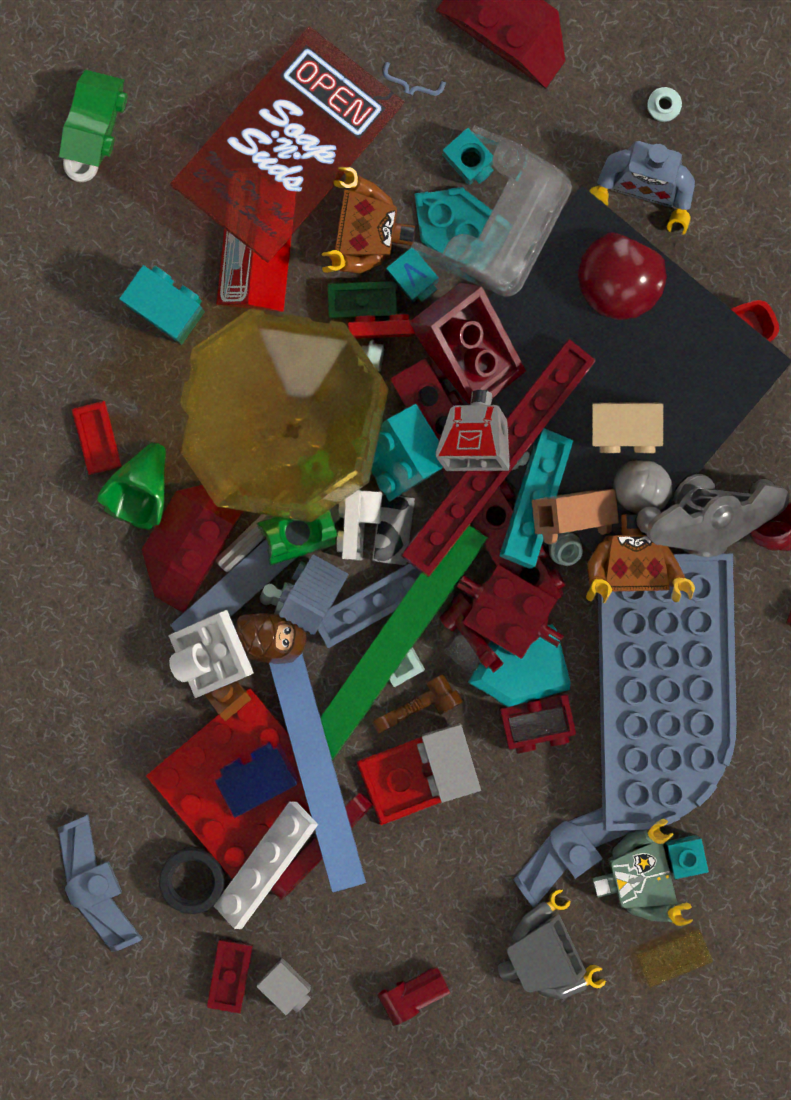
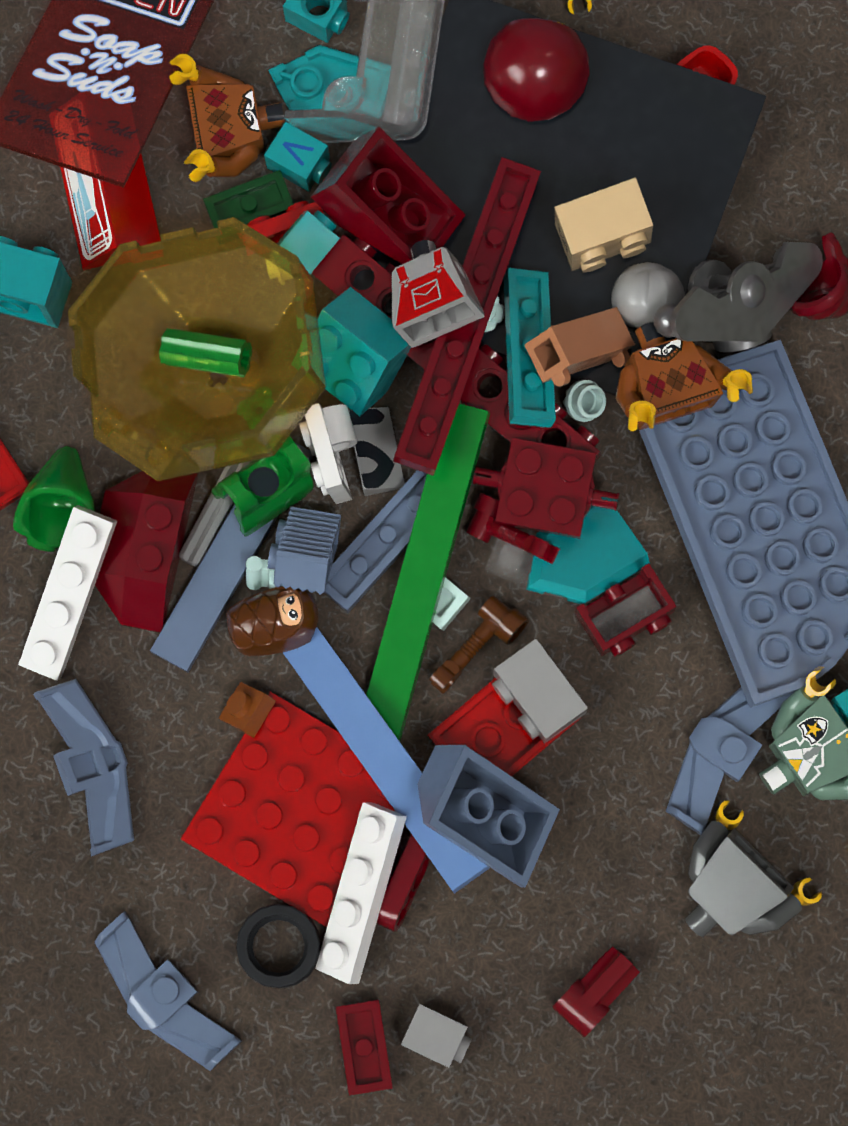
camera: 15 degrees left, 10 degrees down
(97, 697) = (91, 764): none -> sand blue plate
(122, 562) = (67, 592): none -> white plate
(209, 655) = (207, 662): white plate -> none
(257, 779) = (313, 784): clear blue brick -> none
(287, 413) = (205, 352): none -> green axle
(375, 842) = (485, 811): none -> sand blue slope
(395, 353) = (310, 238): none -> teal brick

